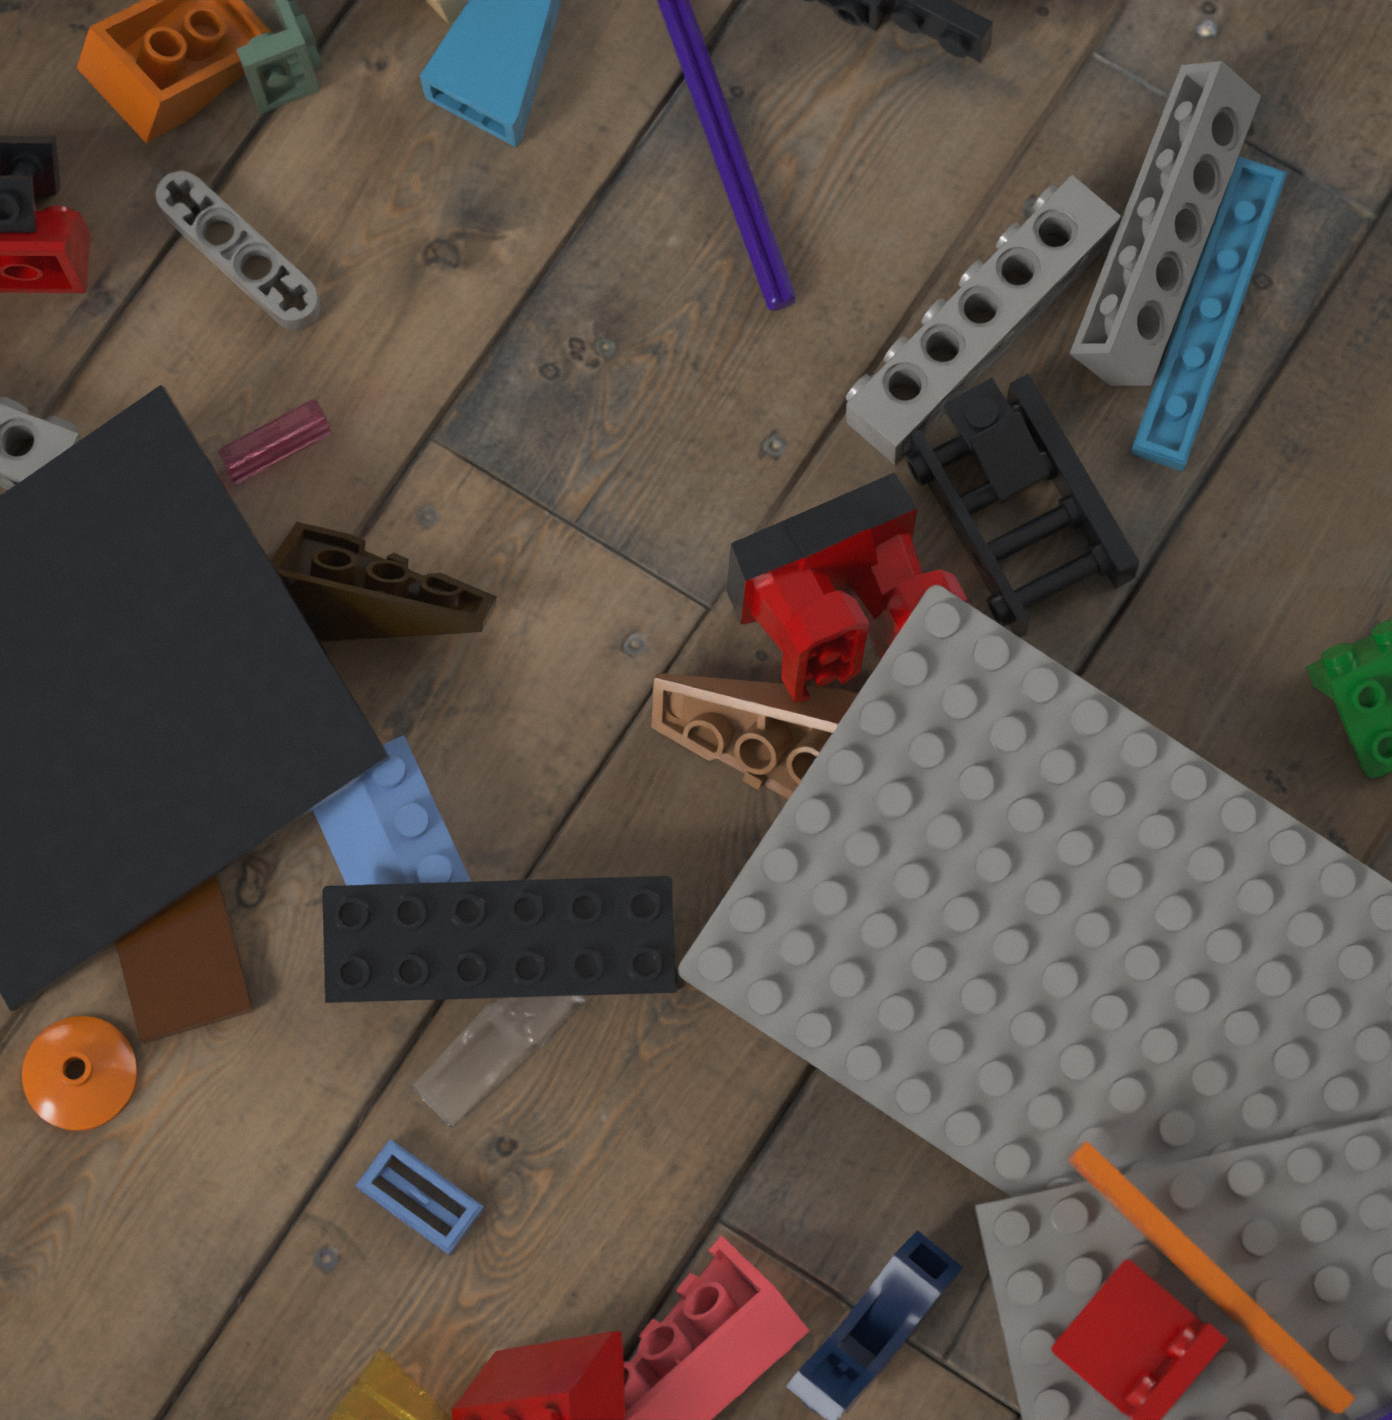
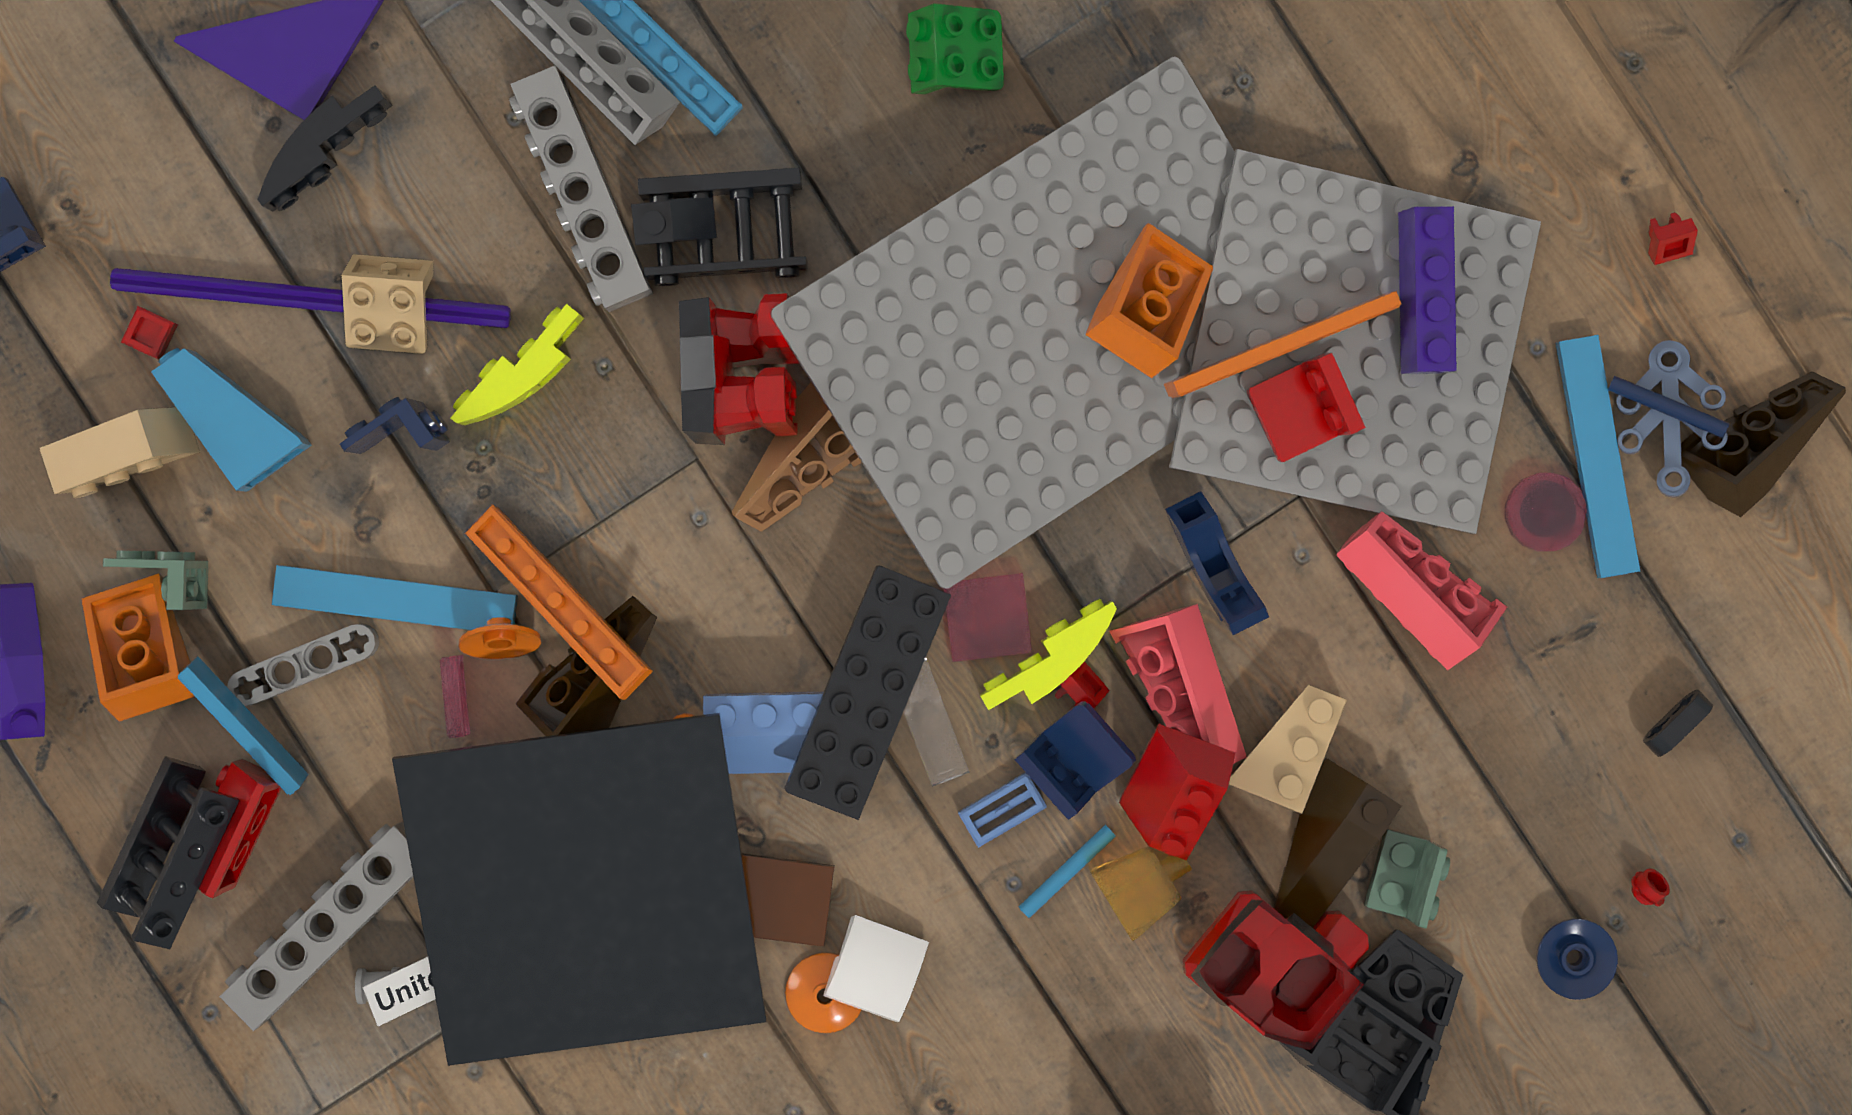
camera: 75 degrees left, 15 degrees up
(130, 206) = (243, 725): none -> dark azure tile
(137, 1120) = (876, 968): none -> white slope
(366, 324) = (389, 598): none -> dark azure tile
(368, 460) = (499, 640): none -> orange dish
(373, 1321) = (1067, 871): none -> dark azure bar
(446, 510) = (559, 602): none -> orange tile
(526, 1257) = (1075, 758): none -> dark blue bracket
(592, 215) = (424, 426): none -> dark blue bracket
(628, 1230) = (1083, 686): none -> red tile
(668, 1064) = (988, 618): none -> clear pink tile
(670, 1184) = (1066, 648): none -> neon yellow slope
(700, 340) = (510, 384): none -> neon yellow slope
(731, 153) = (386, 303): none -> tan bracket
(1181, 1074) = (1151, 302): none -> orange slope

